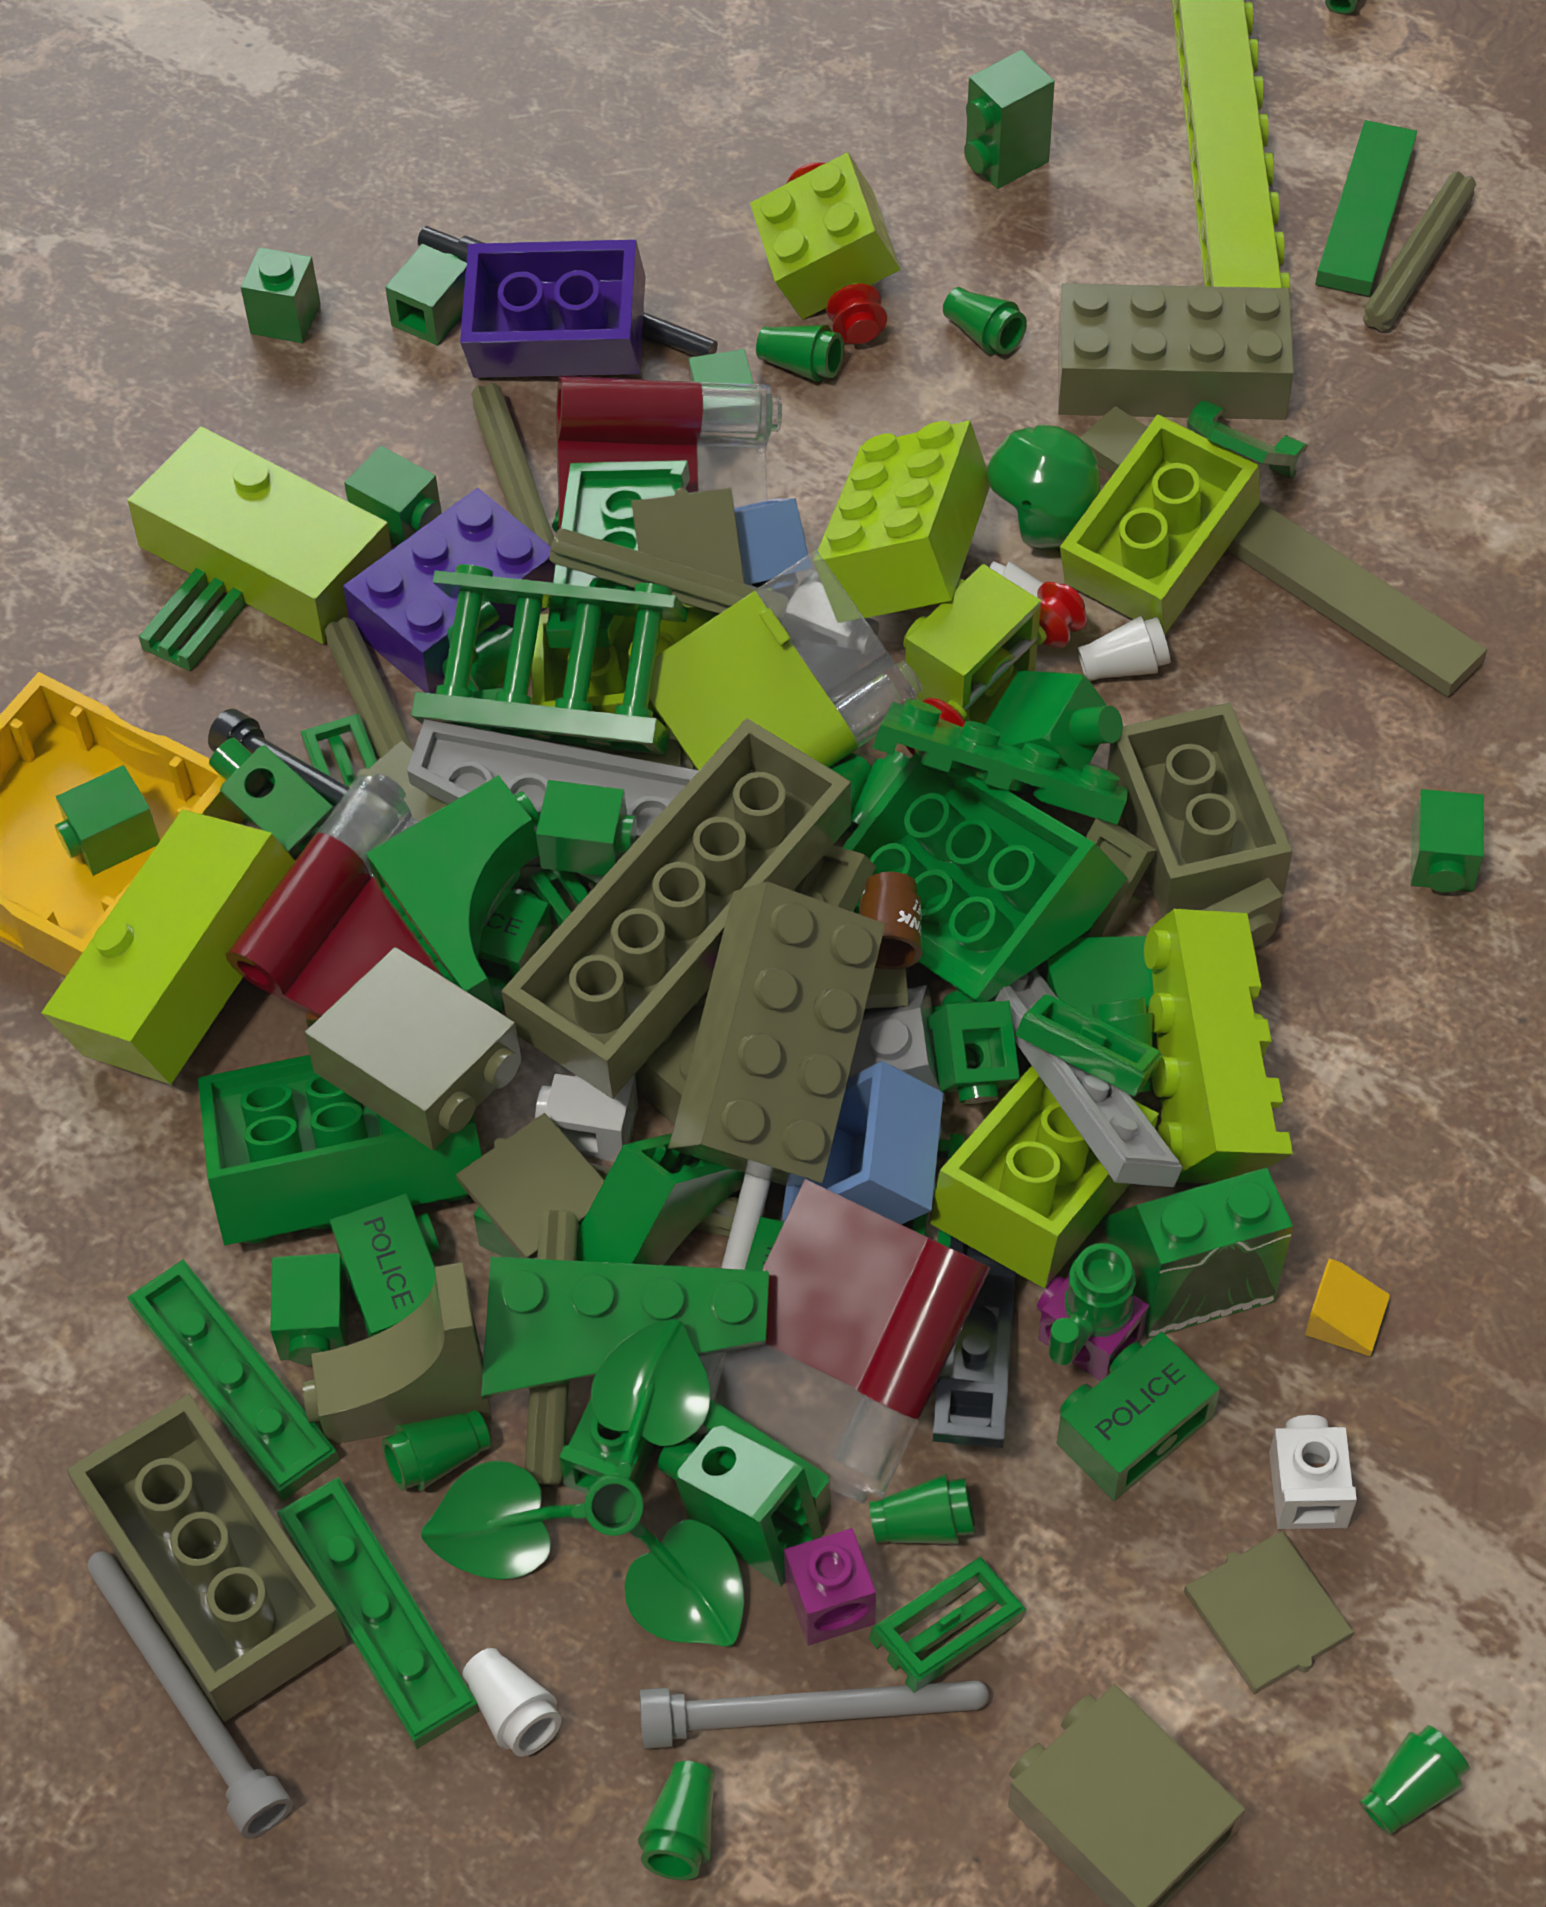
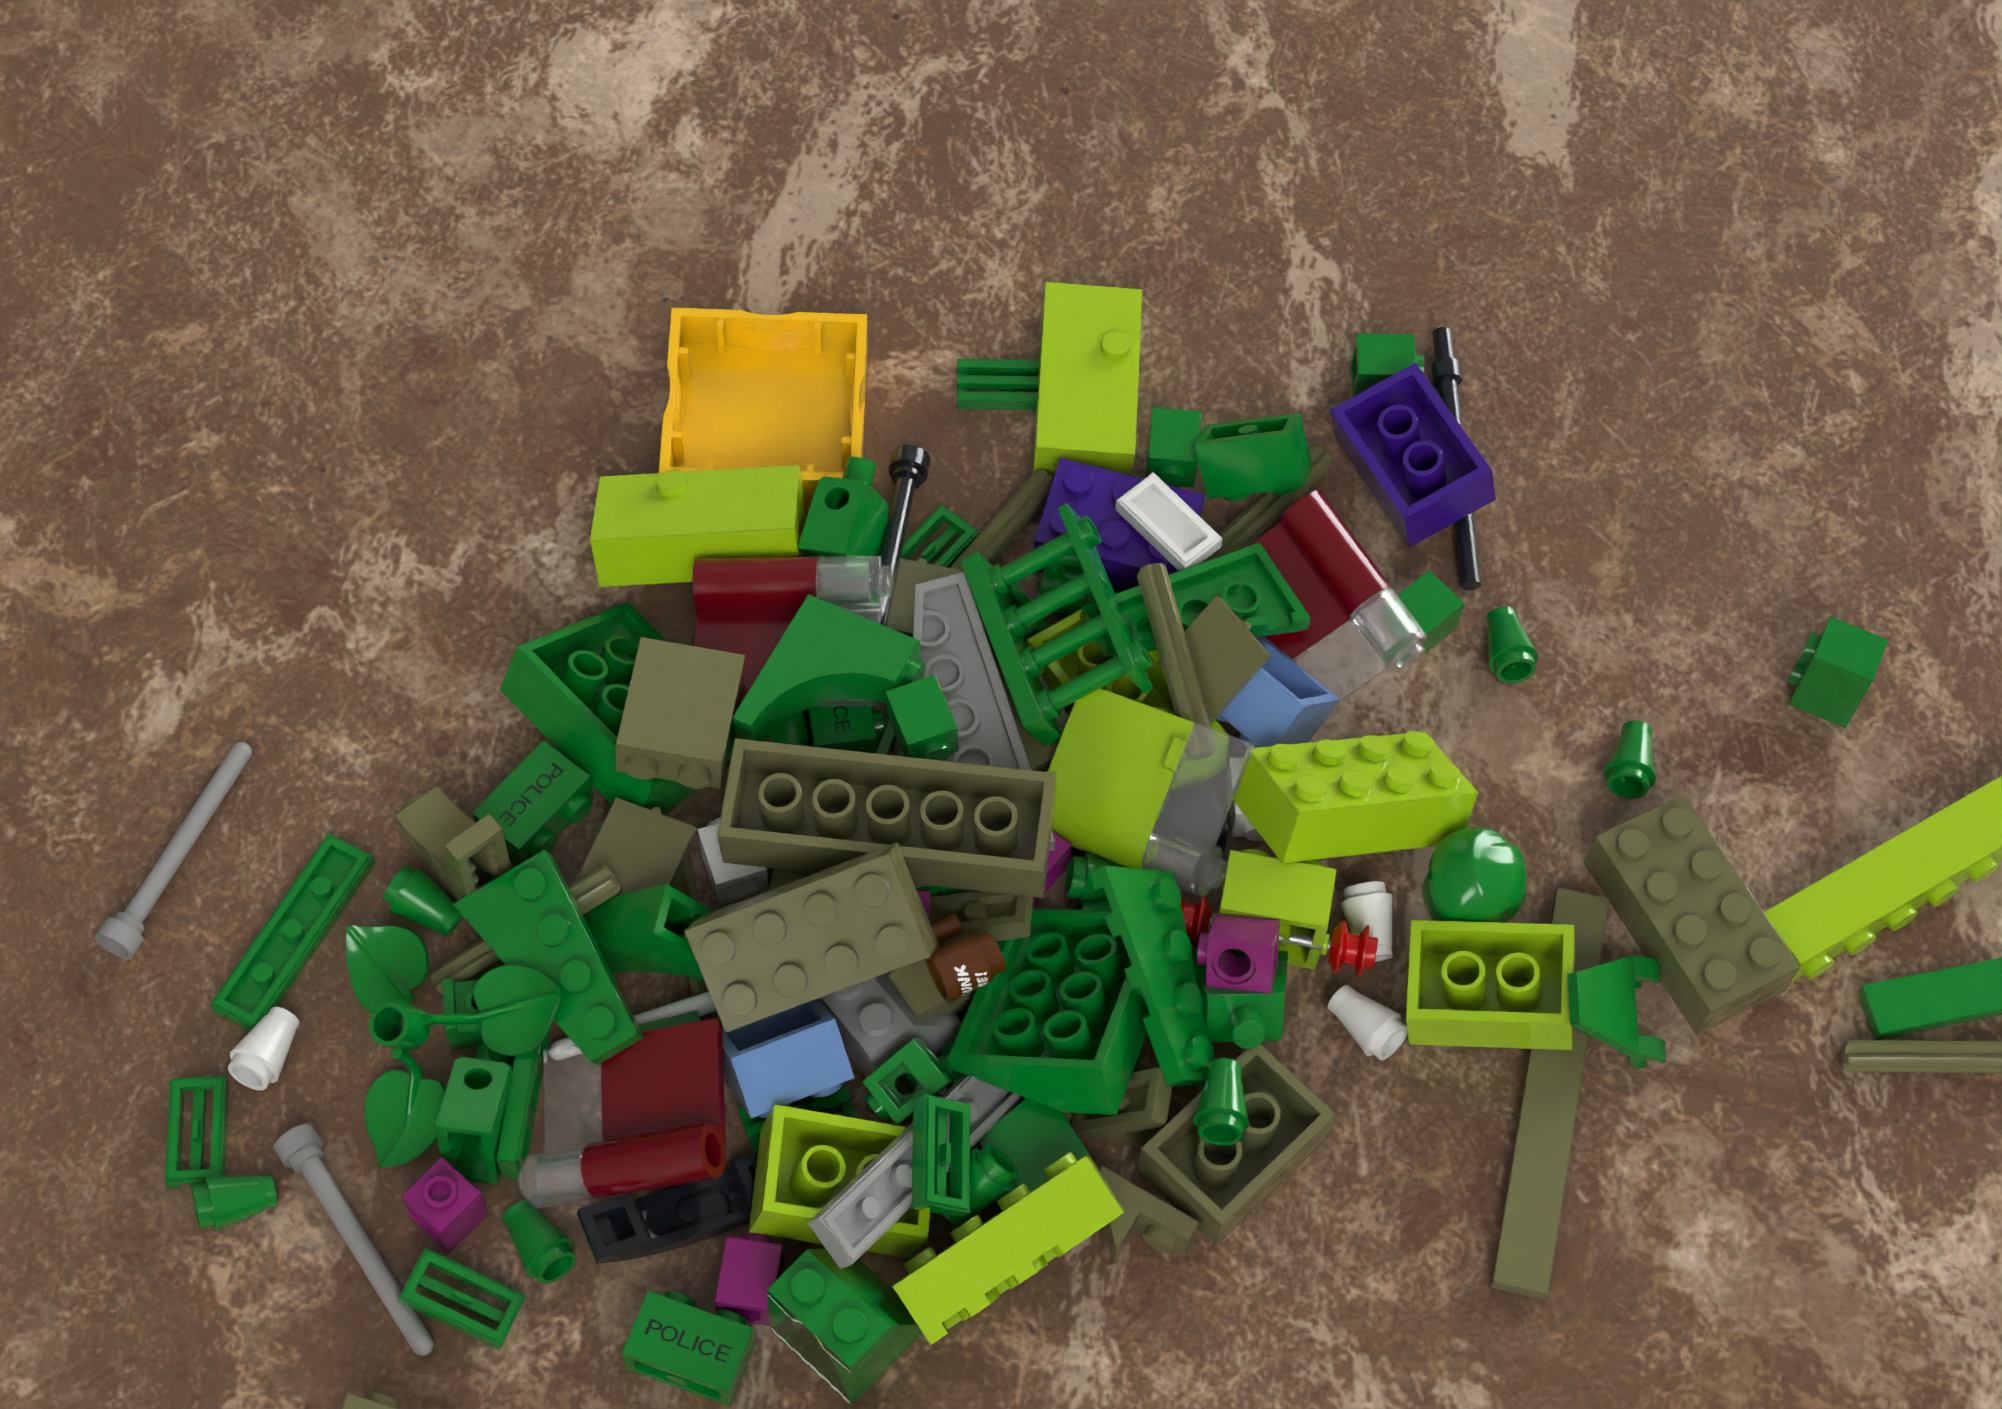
camera: 55 degrees right, 5 degrees up
(106, 821) = (784, 427): green brick -> none
(207, 1556) = (264, 807): olive brick -> none
(233, 1379) = (414, 750): green tile -> none
(280, 295) = (1312, 272): green brick -> none
(308, 1305) = (478, 765): green brick -> none
(464, 427) = (1253, 457): none -> green brick
(495, 524) = (1168, 523): none -> white tile
(619, 1858) = (199, 1085): none -> green tile
(829, 246) = (1616, 607): lime brick -> none
(1019, 686) = (1253, 936): none -> magenta brick
(1095, 1302) = (745, 1266): green piece -> none
(1176, 780) = (1222, 1105): none -> green cone
(1447, 840) = (1330, 1344): green brick -> none

